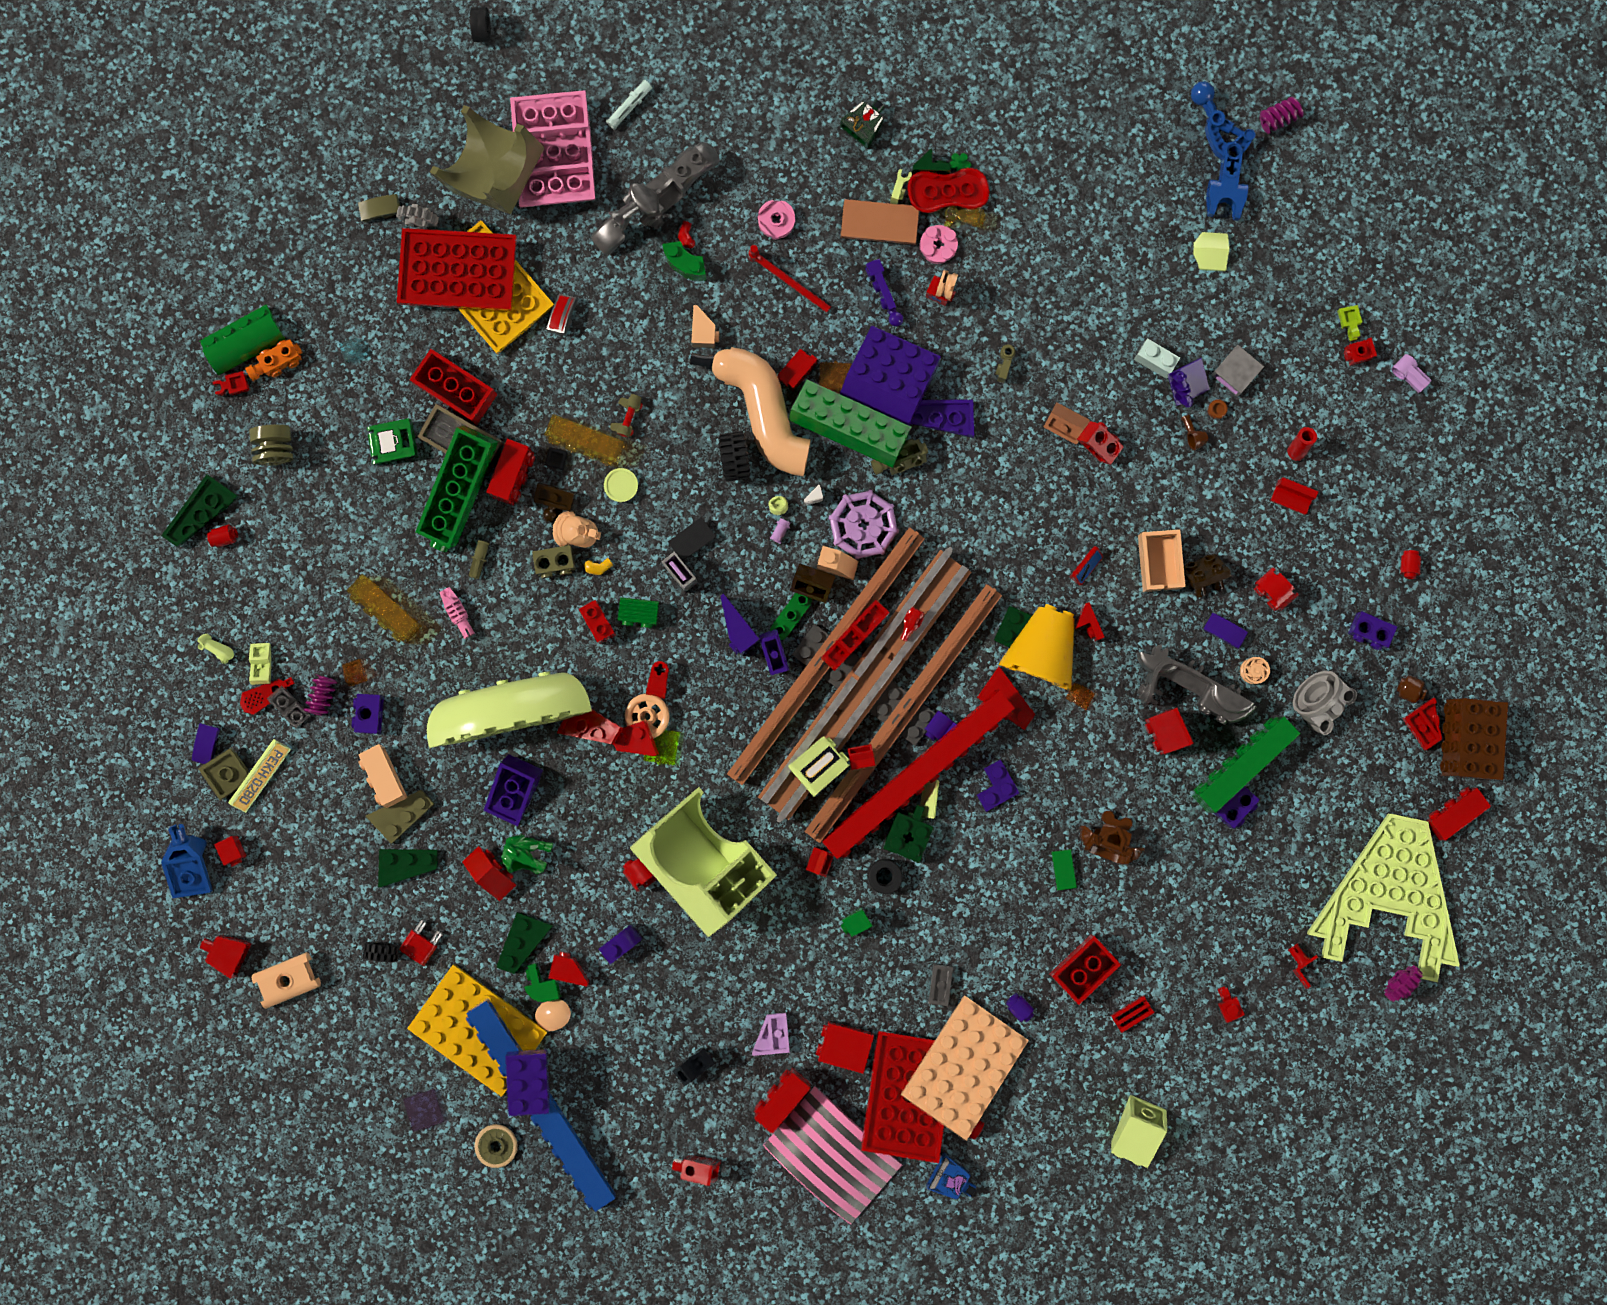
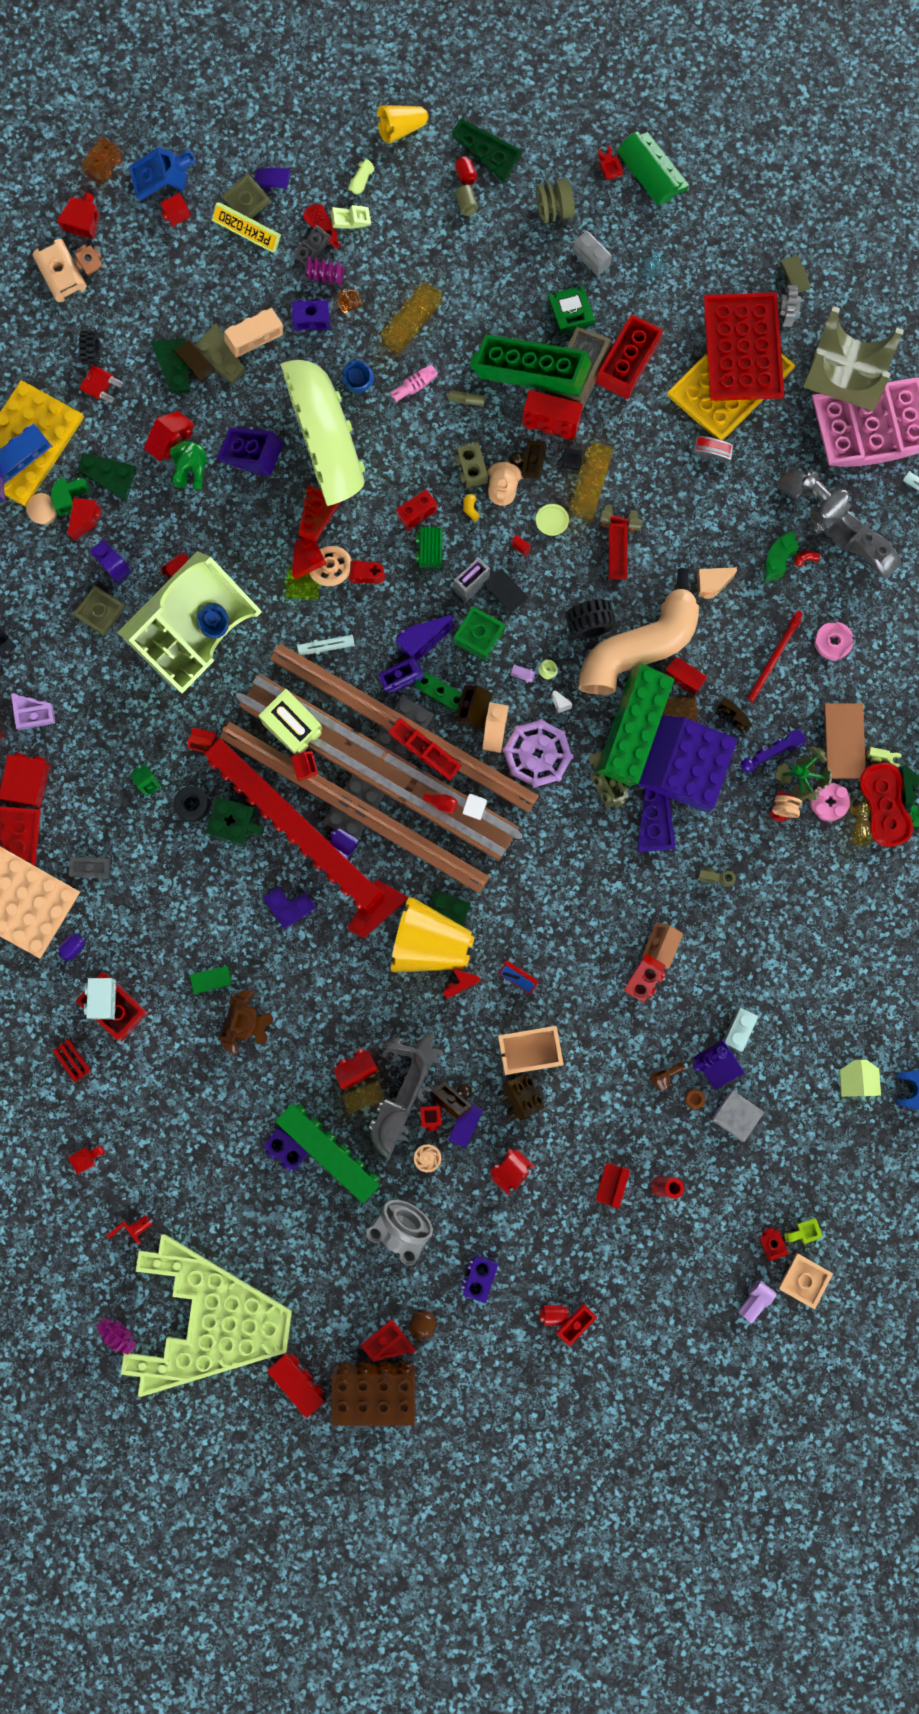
camera: 90 degrees right, 5 degrees down
(157, 600) = (400, 121): none -> yellow cone
(163, 926) = (102, 160): none -> clear orange brick
(256, 538) = (466, 200): none -> olive brick
(279, 360) = (634, 197): orange brick -> none
(285, 944) = (91, 266): none -> nougat brick
(332, 413) = (592, 253): none -> light grey brick
(407, 840) = (194, 359): none -> dark brown slope
(443, 670) = (357, 376): none -> blue hair
(645, 519) = (521, 545): none -> red tile
(662, 422) = (618, 551): none -> red plate
(670, 959) = (99, 610): none -> olive tile
(699, 839) = (212, 620): none -> blue hair
(731, 727) = (303, 648): none -> light aqua pin
(737, 570) = (479, 634): none -> green container
(847, 322) = (740, 719): none -> dark brown slope
(902, 264) = (805, 768): none -> olive plant
(918, 590) = (474, 806): none -> white slope
(929, 799) = (270, 841): yellowish green slope -> none
(1080, 696) = (386, 982): clear orange slope -> none
(1081, 978) = (100, 998): none -> light aqua brick
(1193, 724) = (363, 1097): none -> clear yellow plate
(1202, 640) = (453, 1101): none -> dark brown plate
(1217, 663) = (431, 1117): none -> red brick
(1395, 326) = (805, 1281): none -> light nougat plate
(1422, 543) = (576, 1325): none -> red slope

